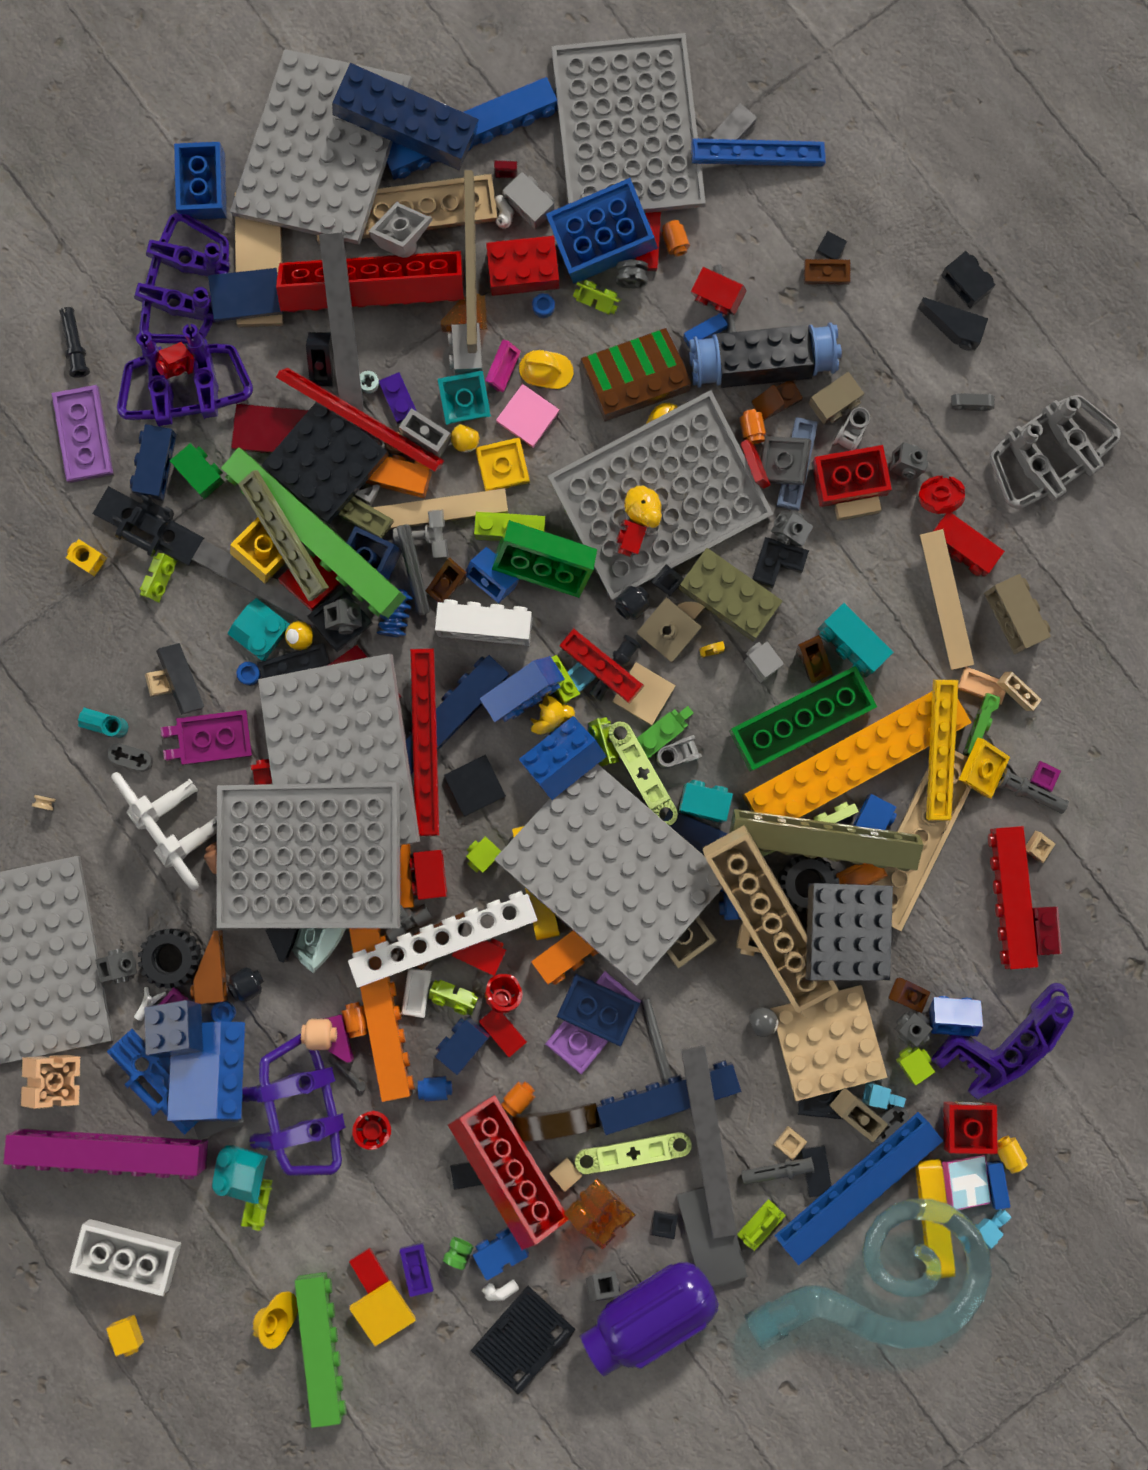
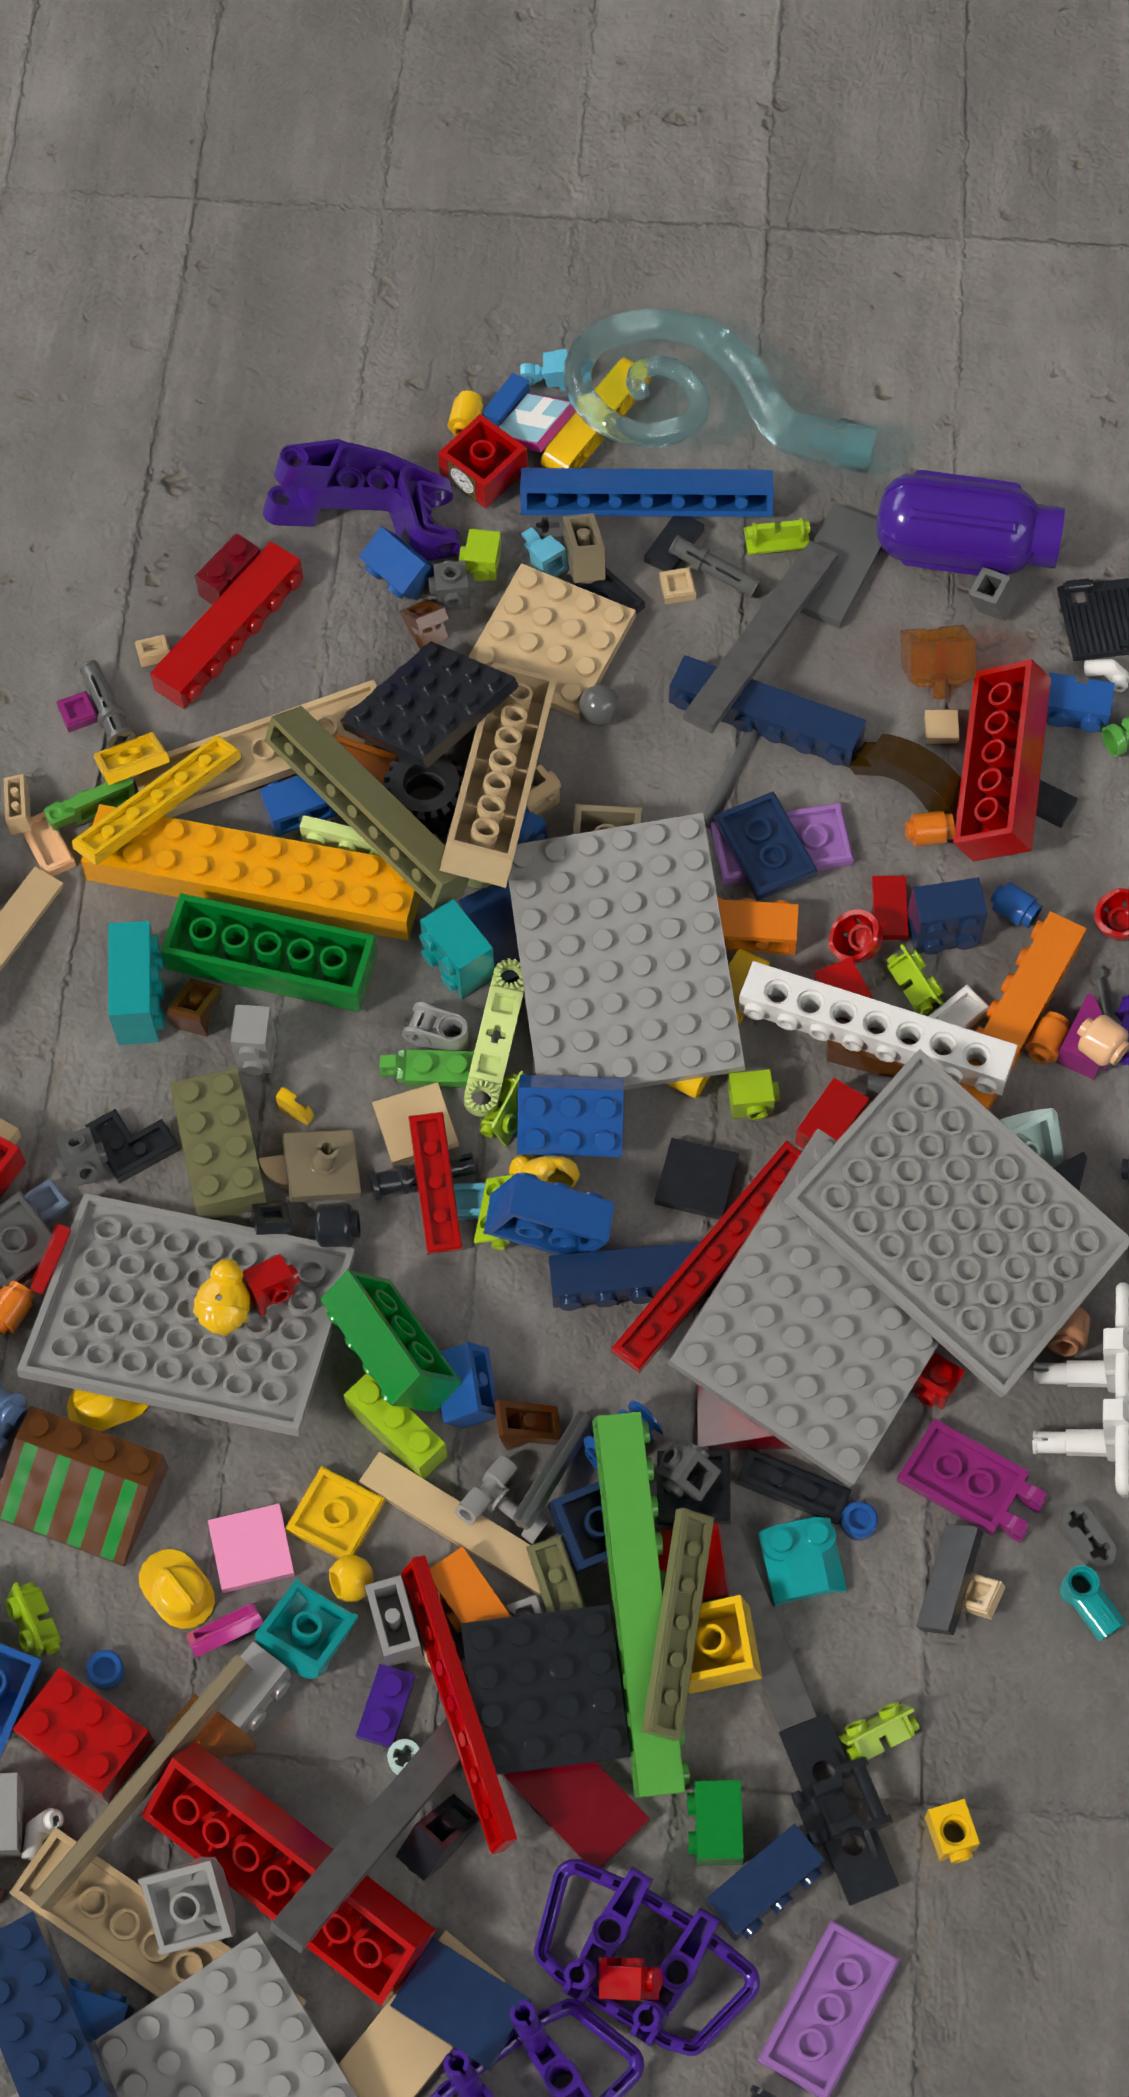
camera: 135 degrees left, 20 degrees down
(299, 635) = (759, 1507): yellow piece -> none
(484, 623) = (526, 1334): white brick -> none
(651, 1150) = (869, 701): yellowish green piece -> none
(664, 1224) = (878, 609): black tile -> none

